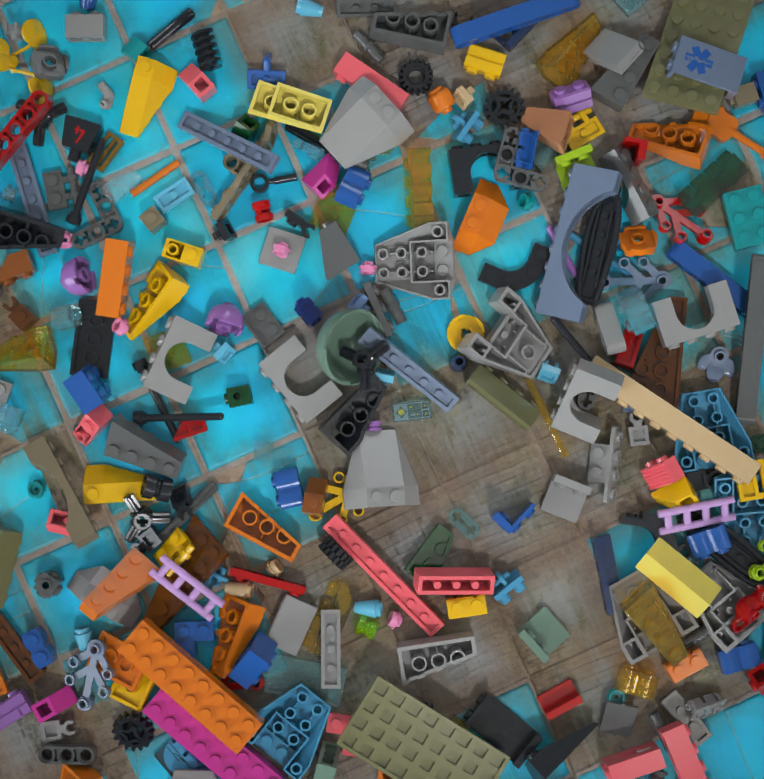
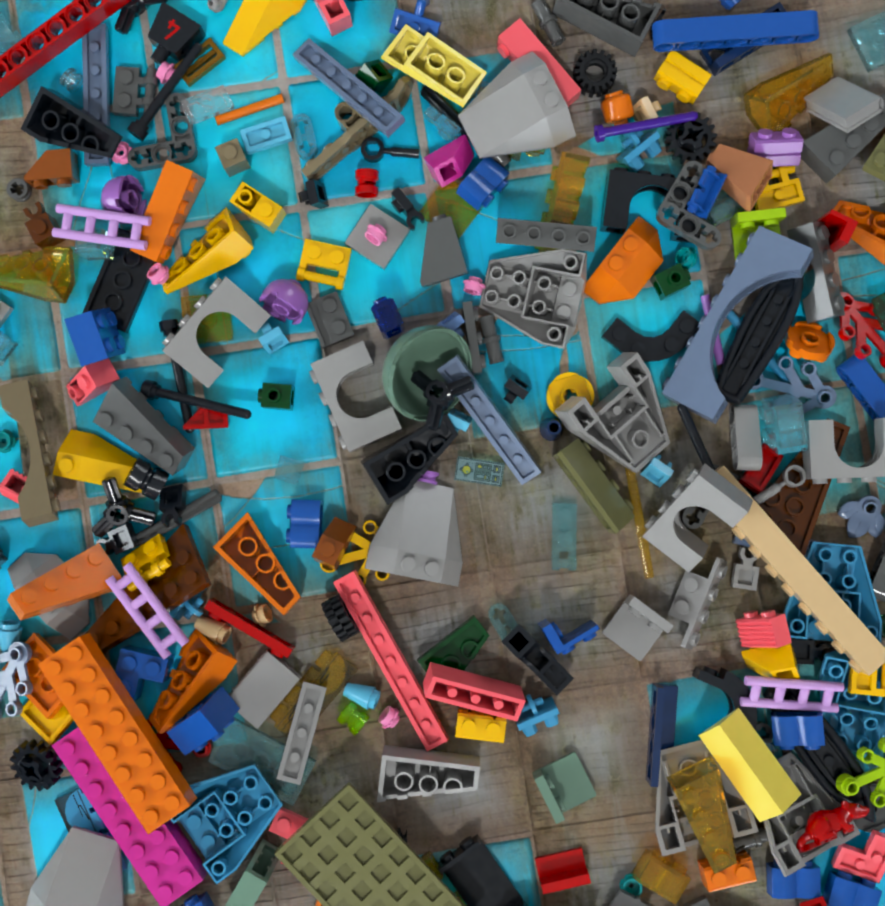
camera: 15 degrees right, 0 degrees up
(77, 311) = (111, 238): none -> lavender bar
(246, 277) = (327, 257): none -> yellow plate
(412, 215) = (546, 234): none -> dark grey brick
(423, 338) = (517, 388): none -> black tile
(433, 124) = (601, 132): none -> dark purple bar
(490, 442) = (564, 536): none -> clear light blue plate
(496, 542) = (538, 659): none -> black arch
(519, 222) = (671, 281): none -> dark green brick
(642, 361) = (775, 488): none -> light grey piece

